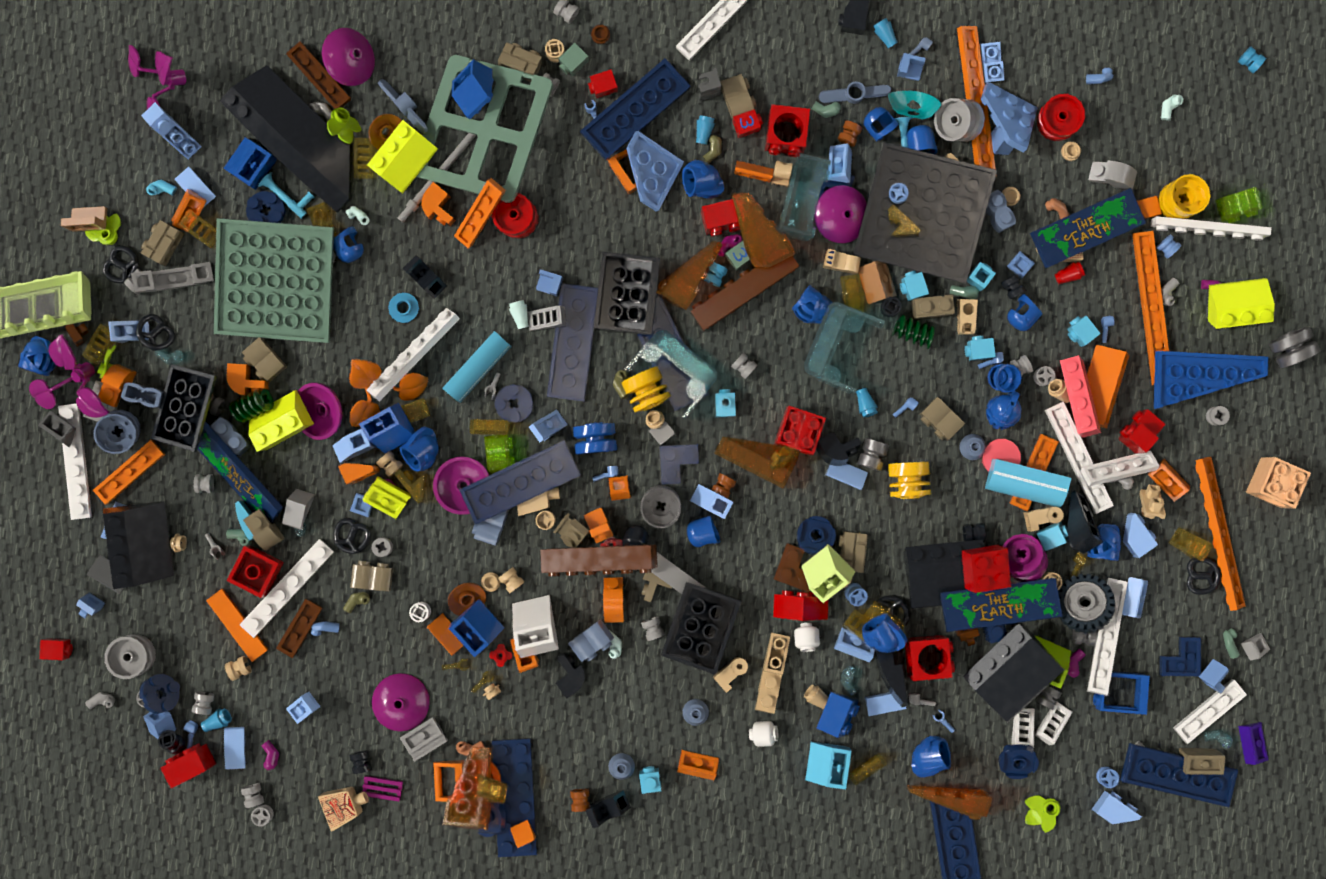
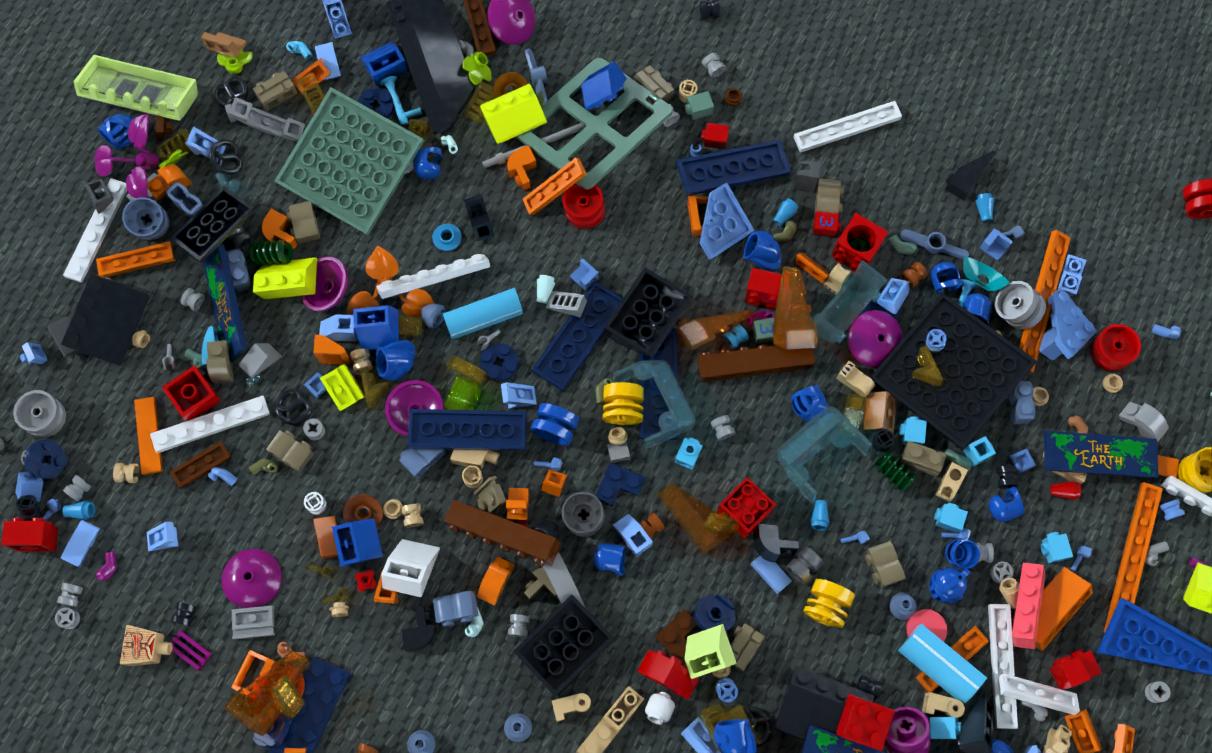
camera: 25 degrees right, 15 degrees down
(431, 389) = (433, 315): none -> sand blue cone
(791, 131) = (858, 242): none -> plate

